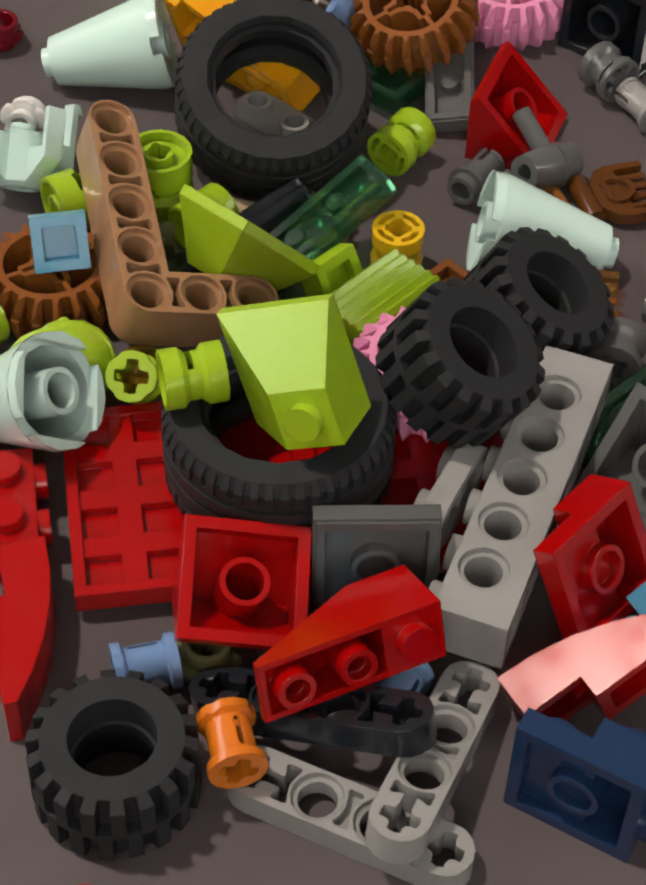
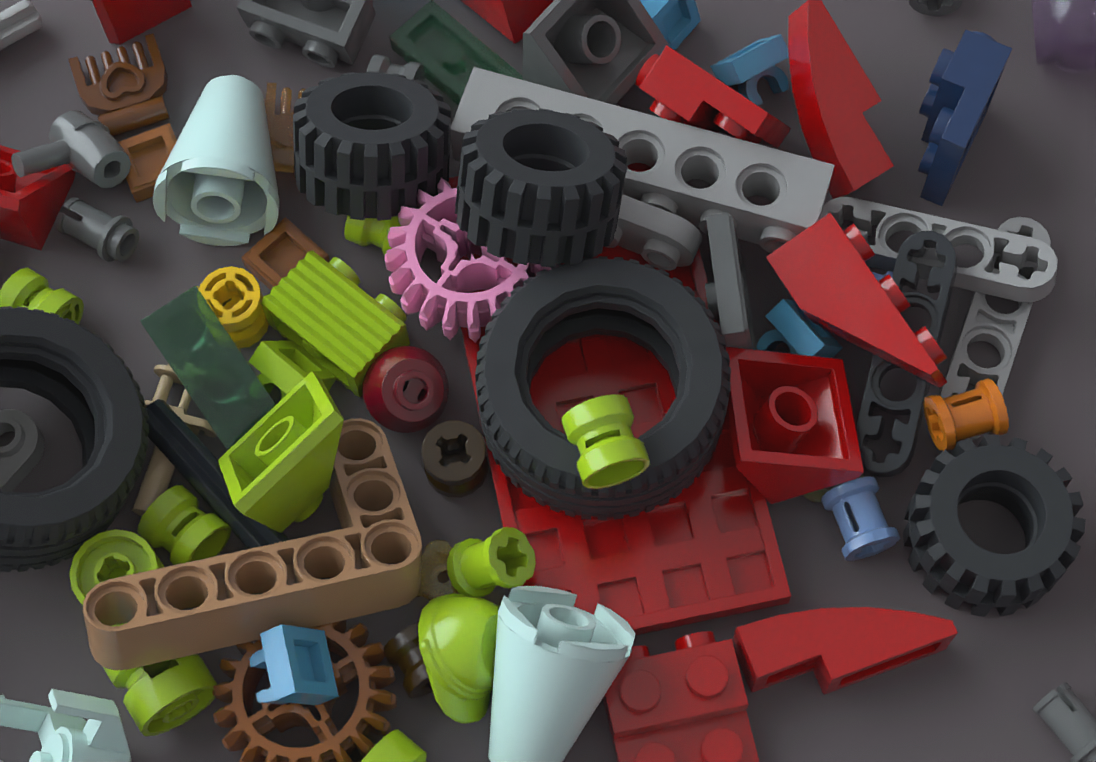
camera: 90 degrees left, 20 degrees up
(297, 369) = (620, 327): lime slope -> none

